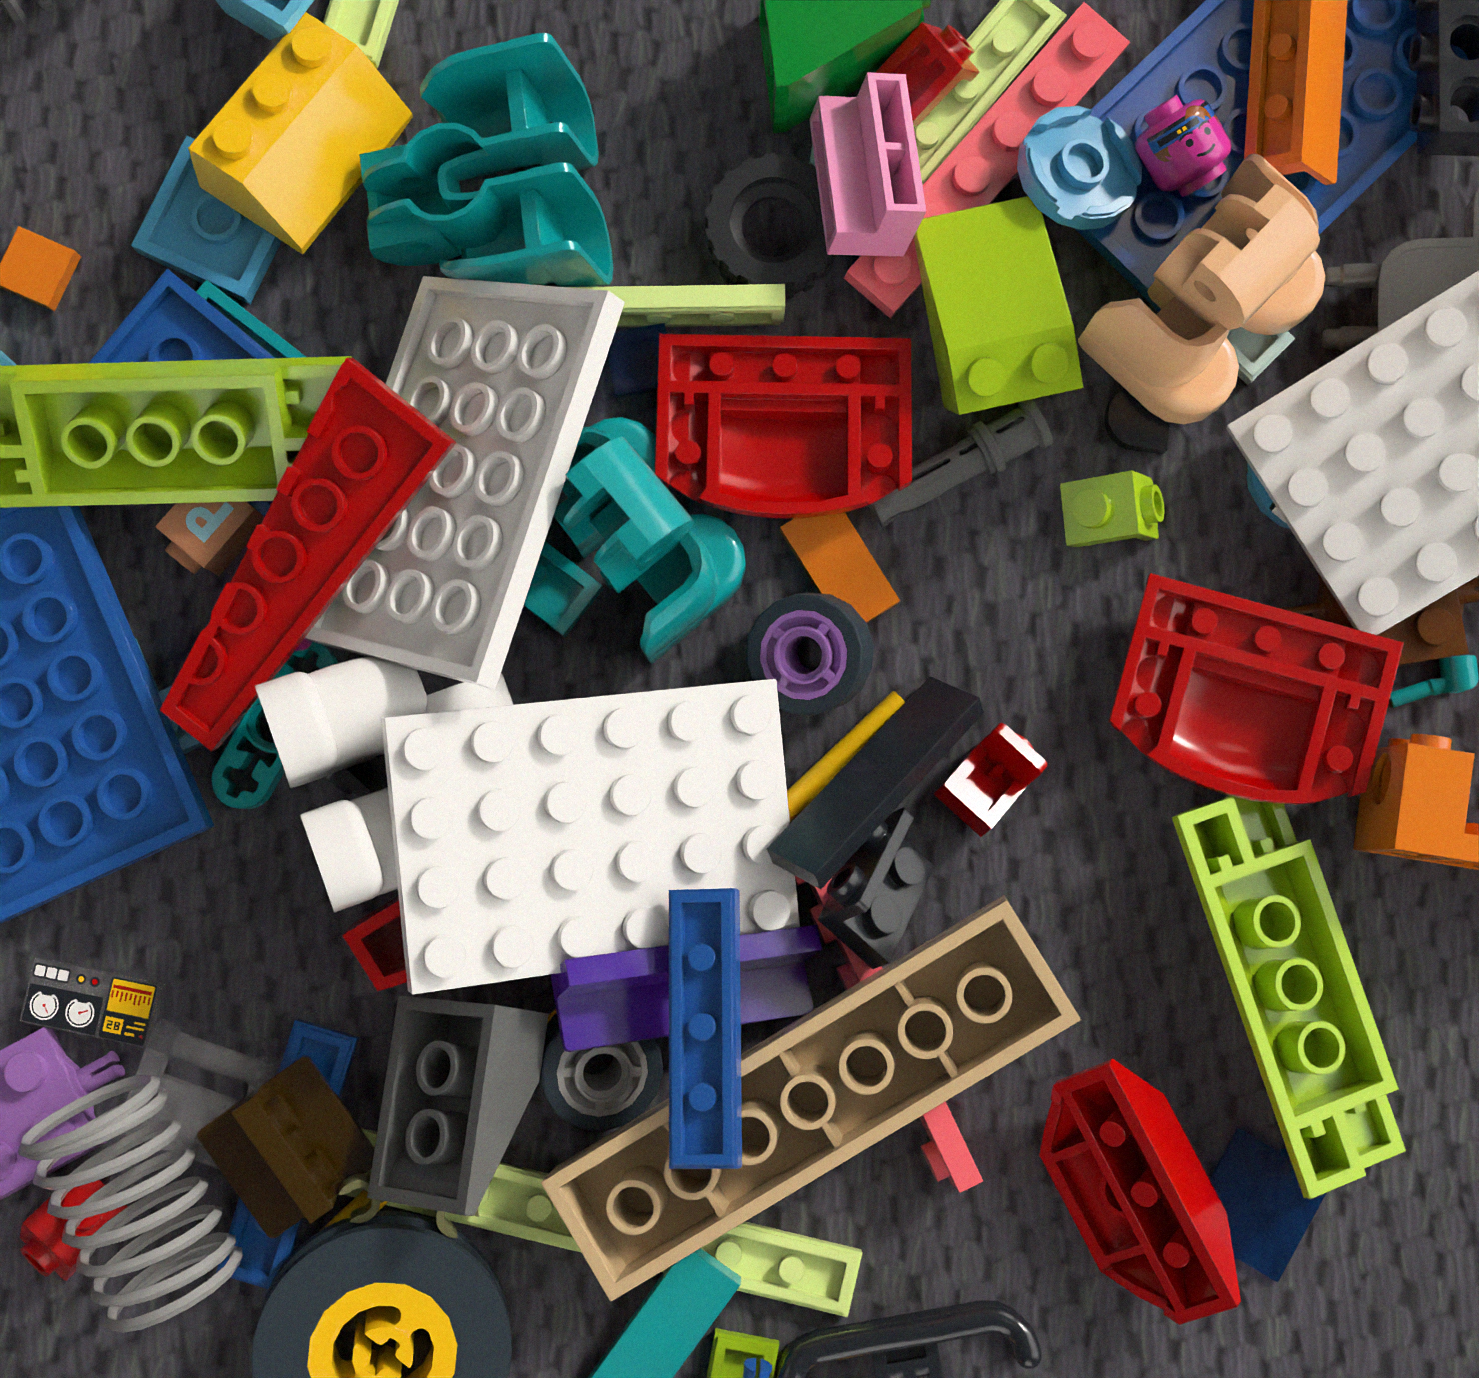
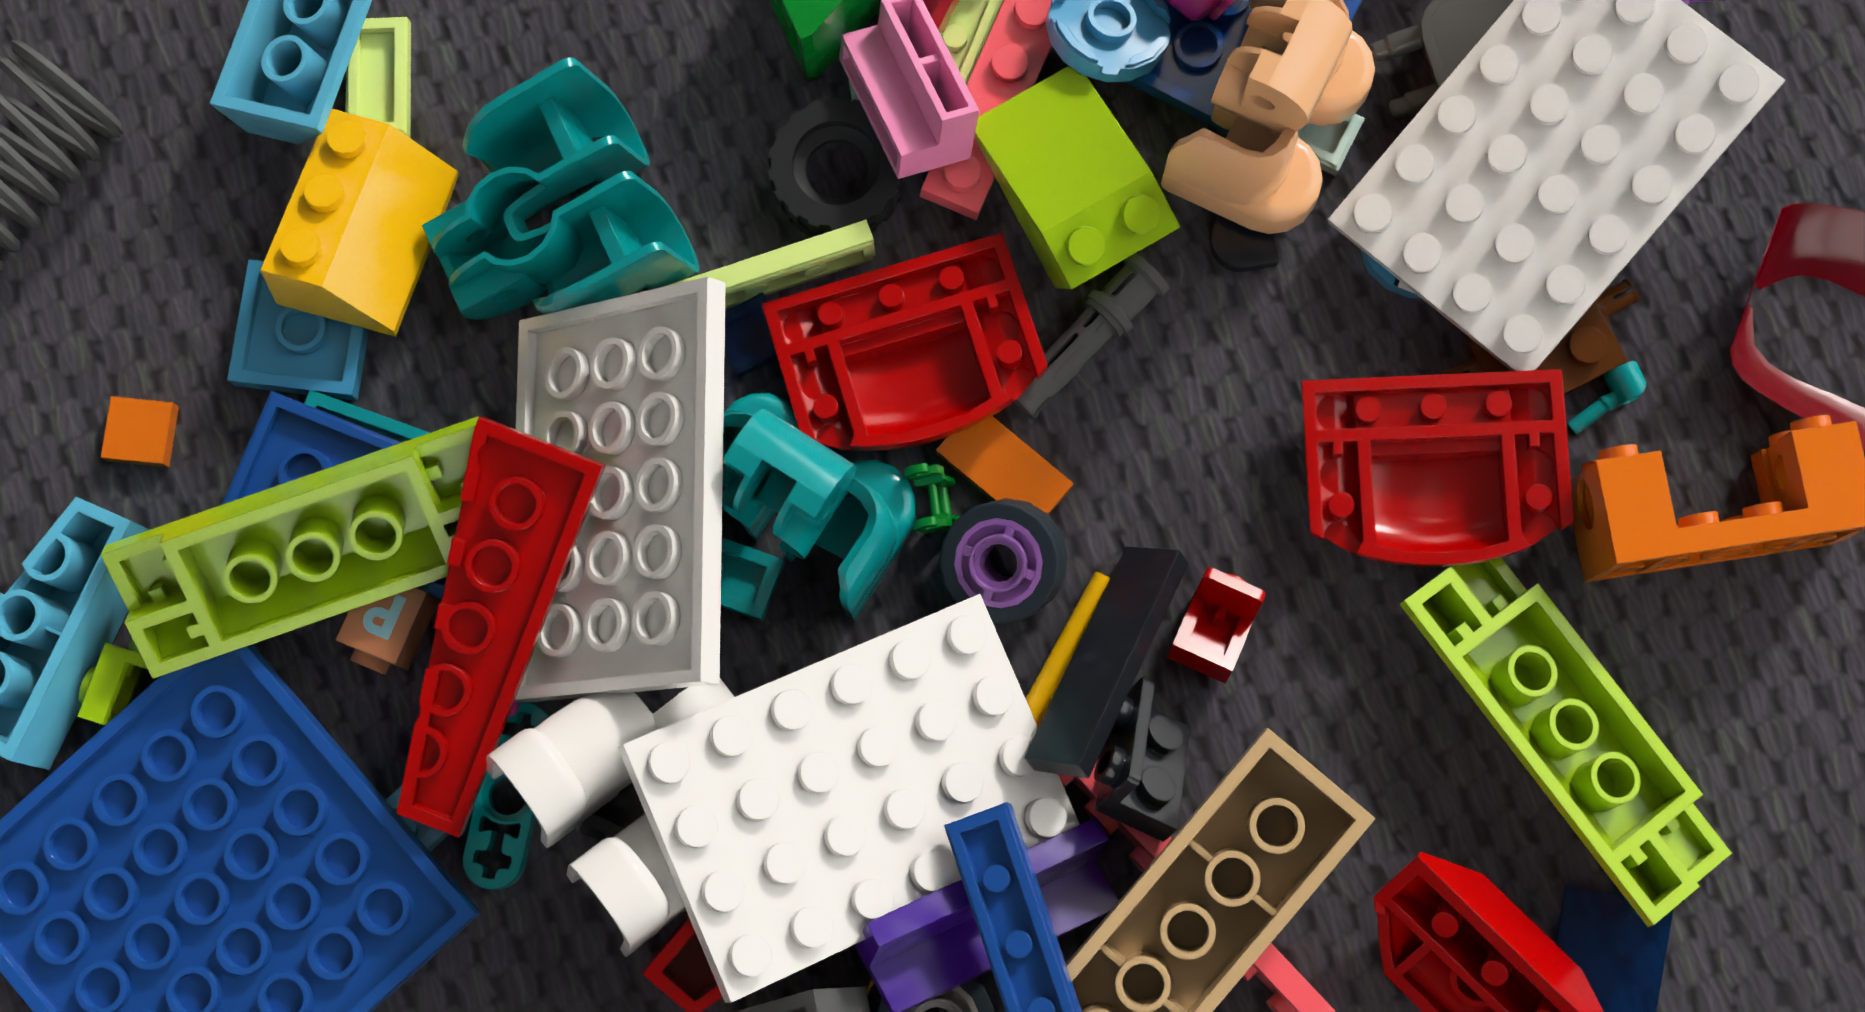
camera: 10 degrees left, 5 degrees down
(769, 563) = (937, 483): none -> green piece
(1111, 509) = (1245, 332): lime bracket -> none

